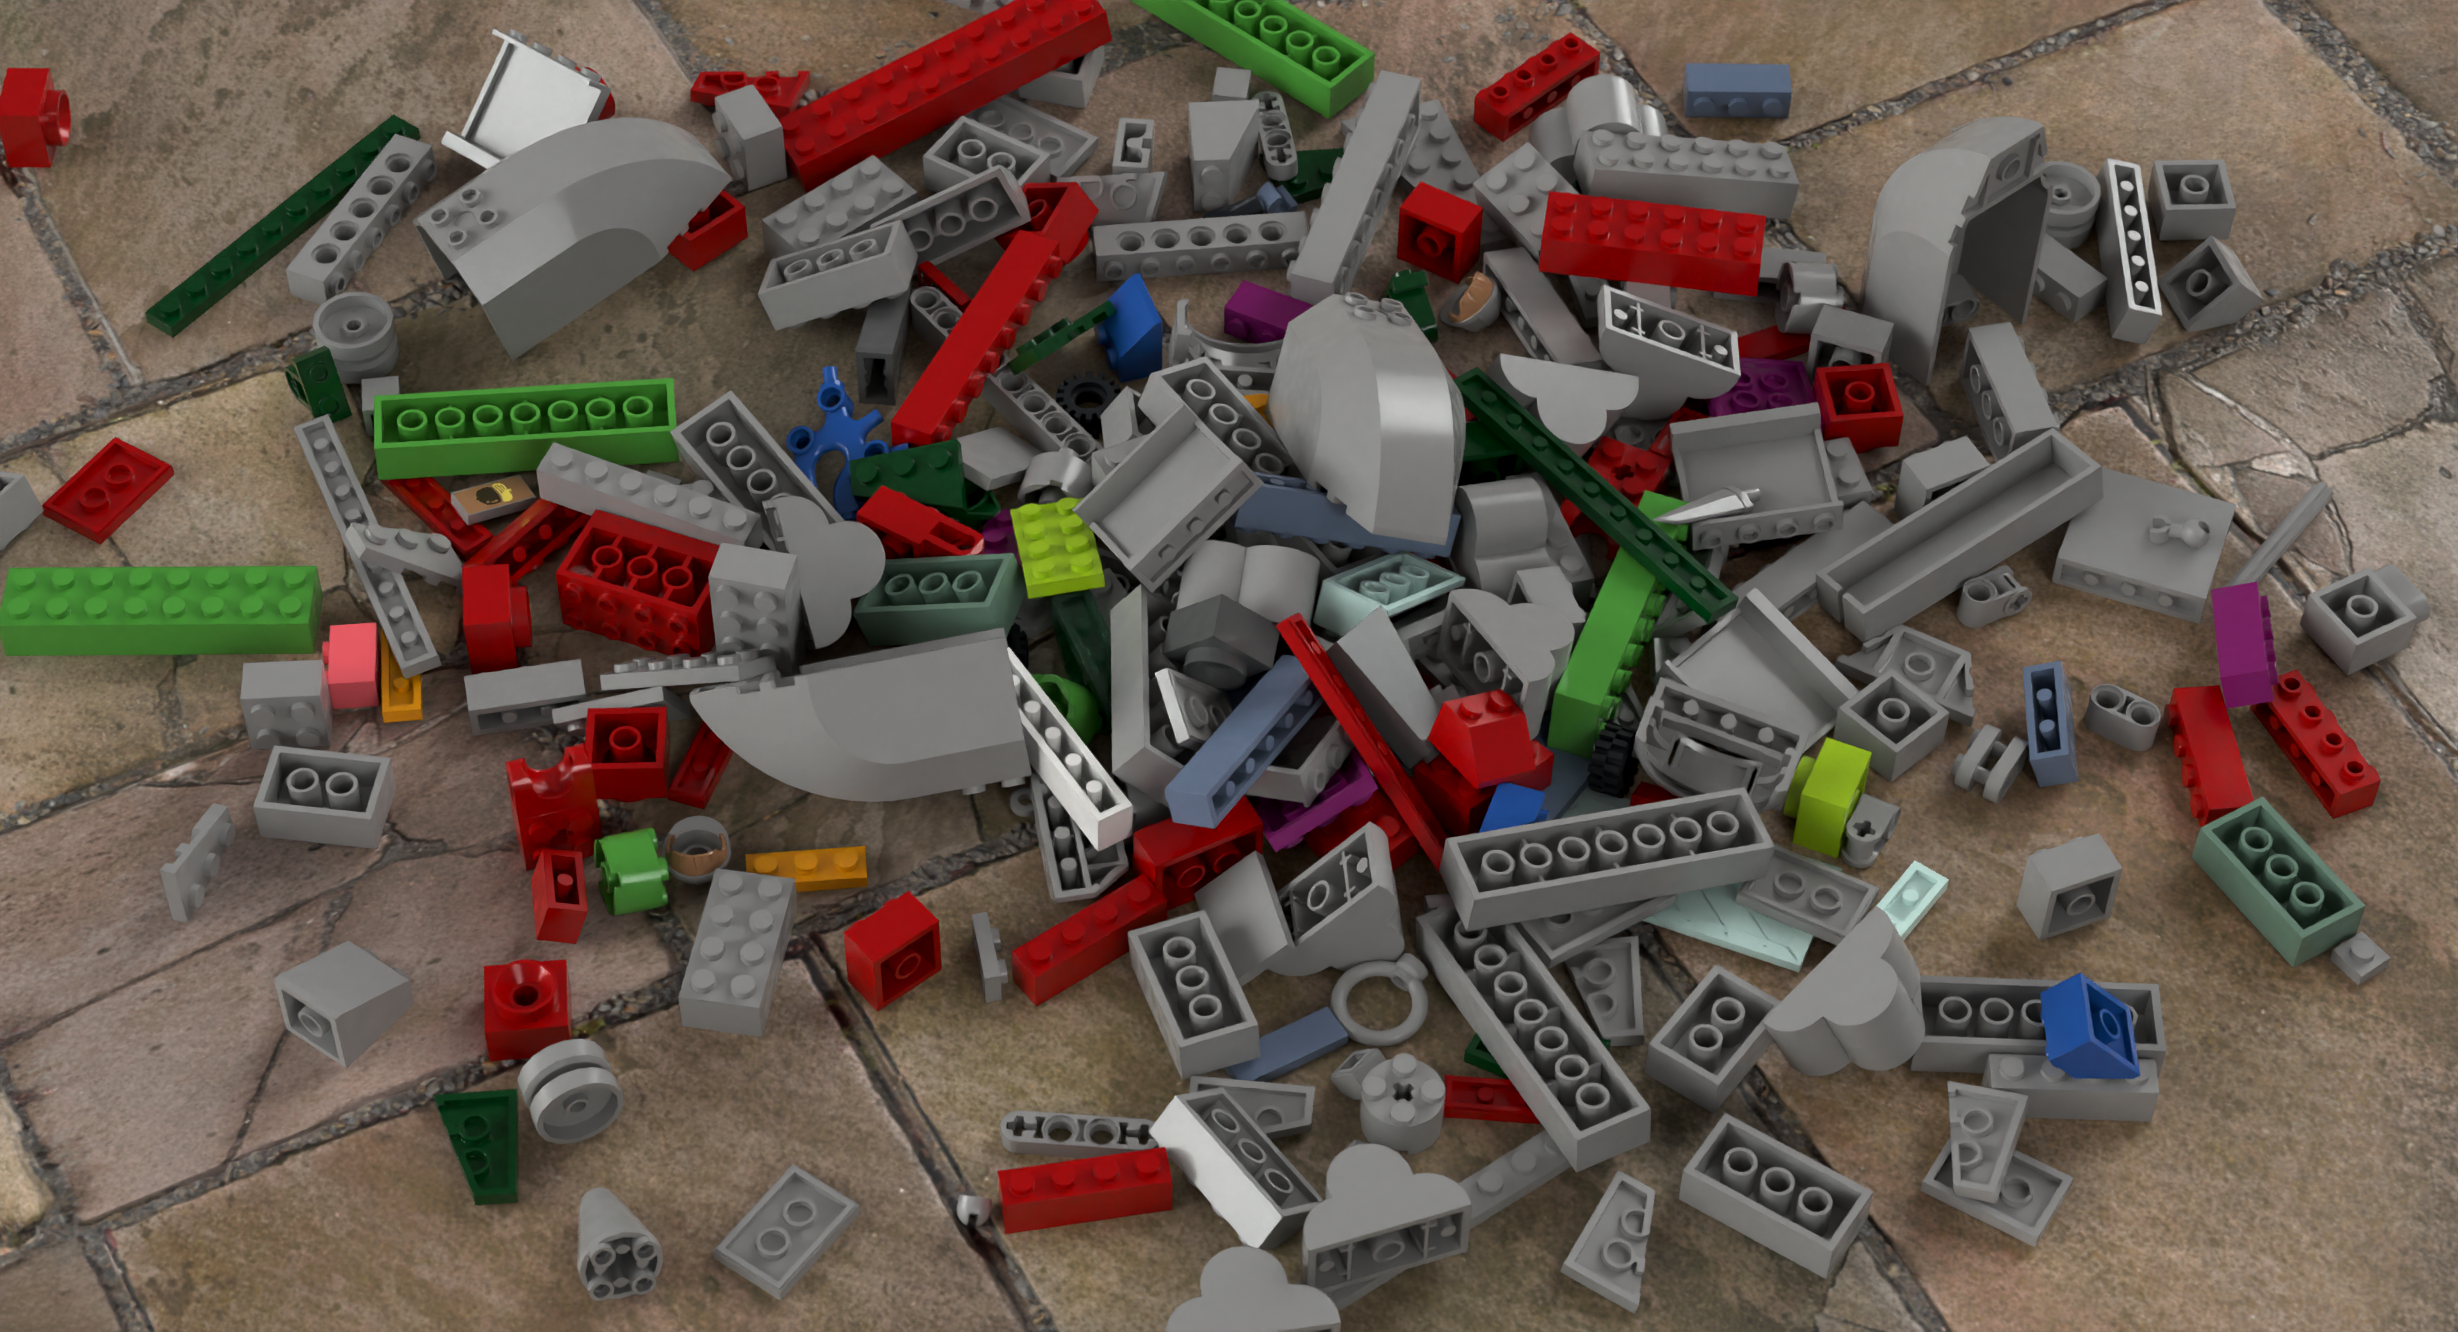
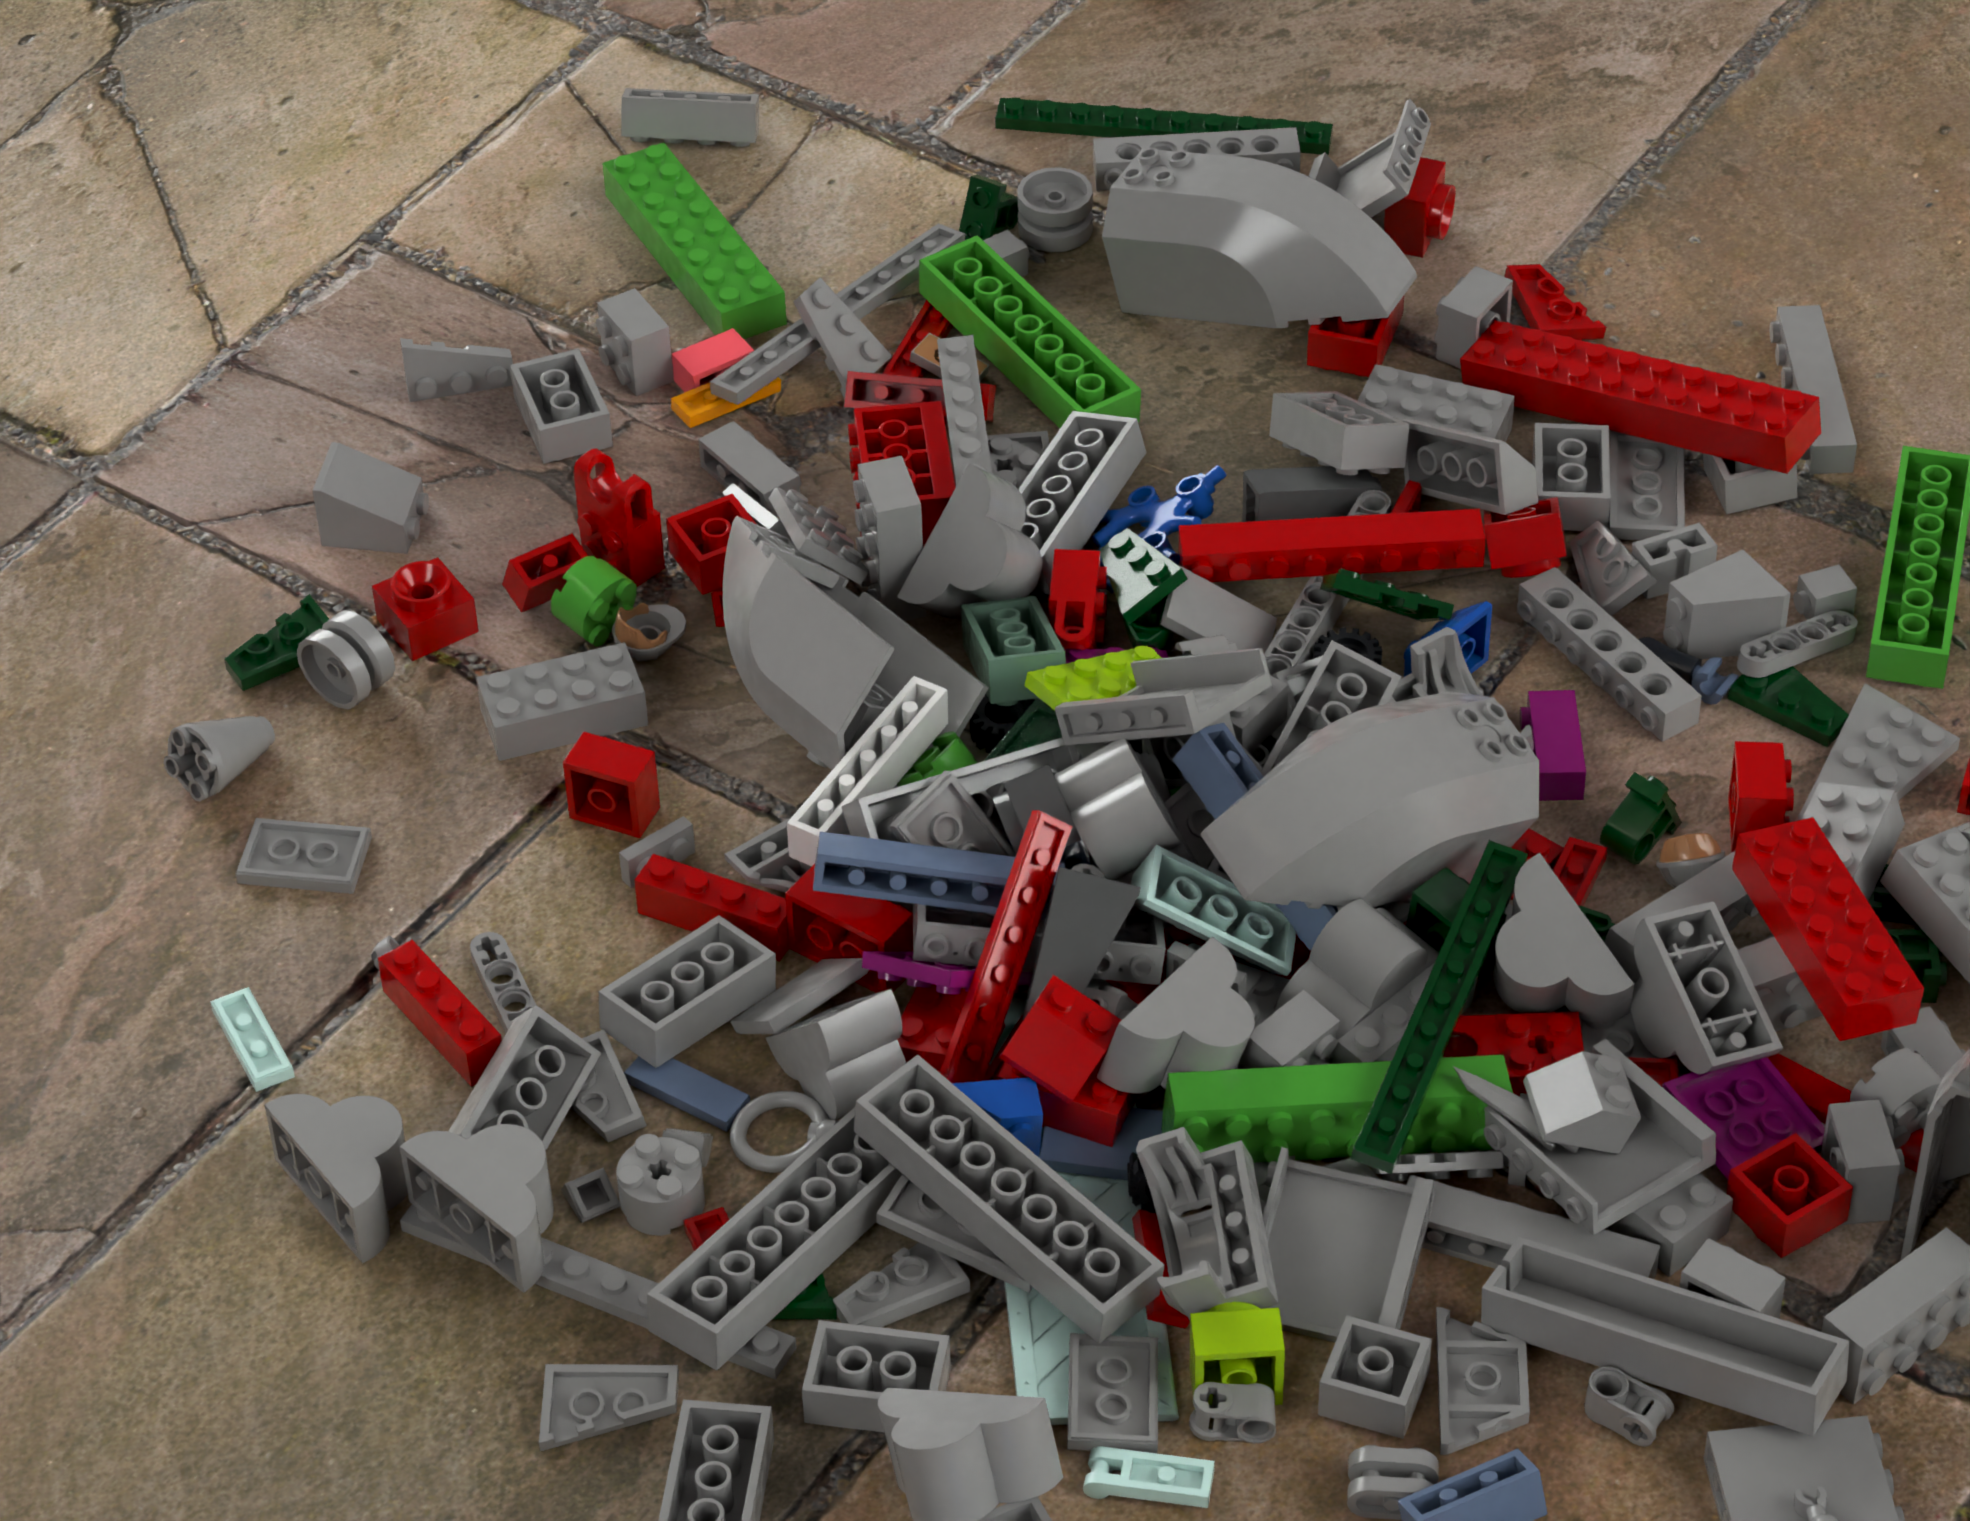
camera: 65 degrees right, 5 degrees down
(107, 490) = (805, 166): red tile -> none
(494, 618) = (804, 409): red piece -> none
(814, 868) = (687, 711): light orange plate -> none
(1359, 190) = (1699, 721): light grey brick -> none
(1732, 461) = (1583, 1102): none -> light grey slope

